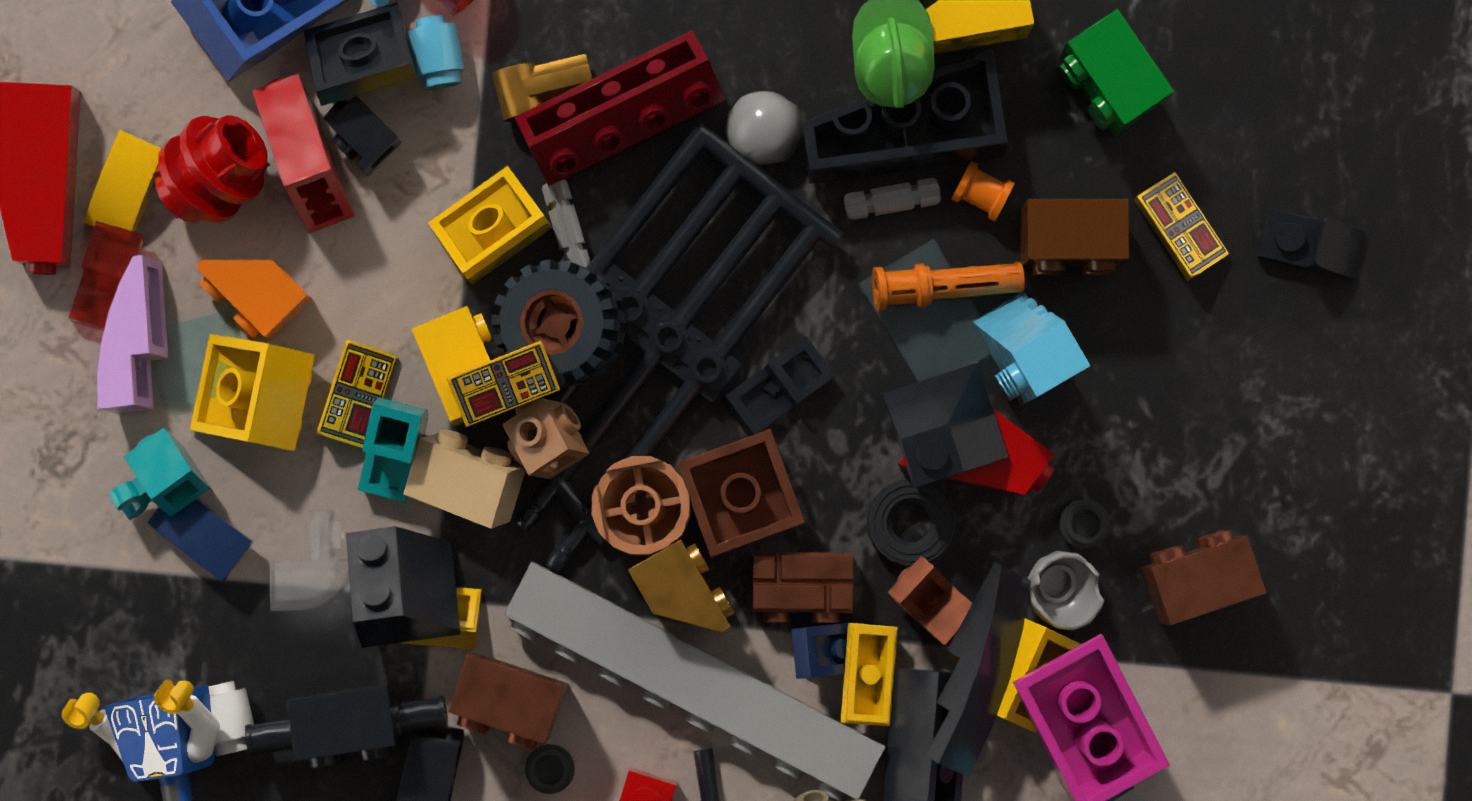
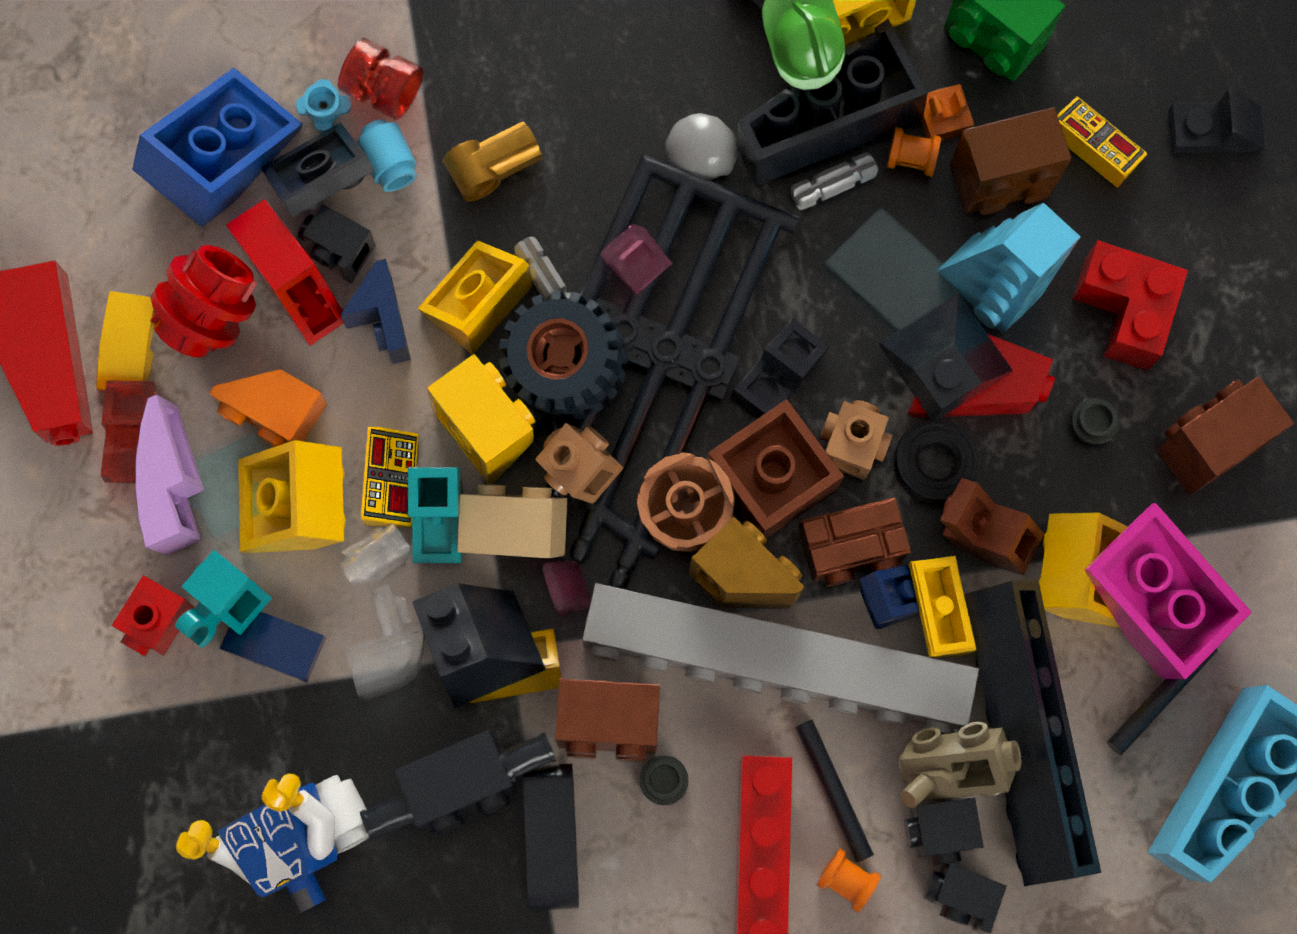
camera: 20 degrees left, 10 degrees down
(87, 476) = (150, 617): none -> red brick
(321, 473) = (375, 557): none -> clear brick
(389, 207) = (377, 302): none -> dark blue slope
(503, 383) = (526, 412): slope -> none
(504, 553) = (566, 587): none -> clear pink slope
(620, 108) = (567, 158): dark red brick -> none
(660, 234) = (635, 258): none -> clear pink slope
(818, 494) = (854, 454): none -> medium nougat brick
(924, 285) = (883, 240): orange pin -> none
(987, 654) = (1050, 582): black slope -> none
(1030, 154) = (946, 113): none -> orange tile
(1065, 590) = (1098, 482): light grey hair -> none
(1171, 409) = (1139, 293): none -> red brick

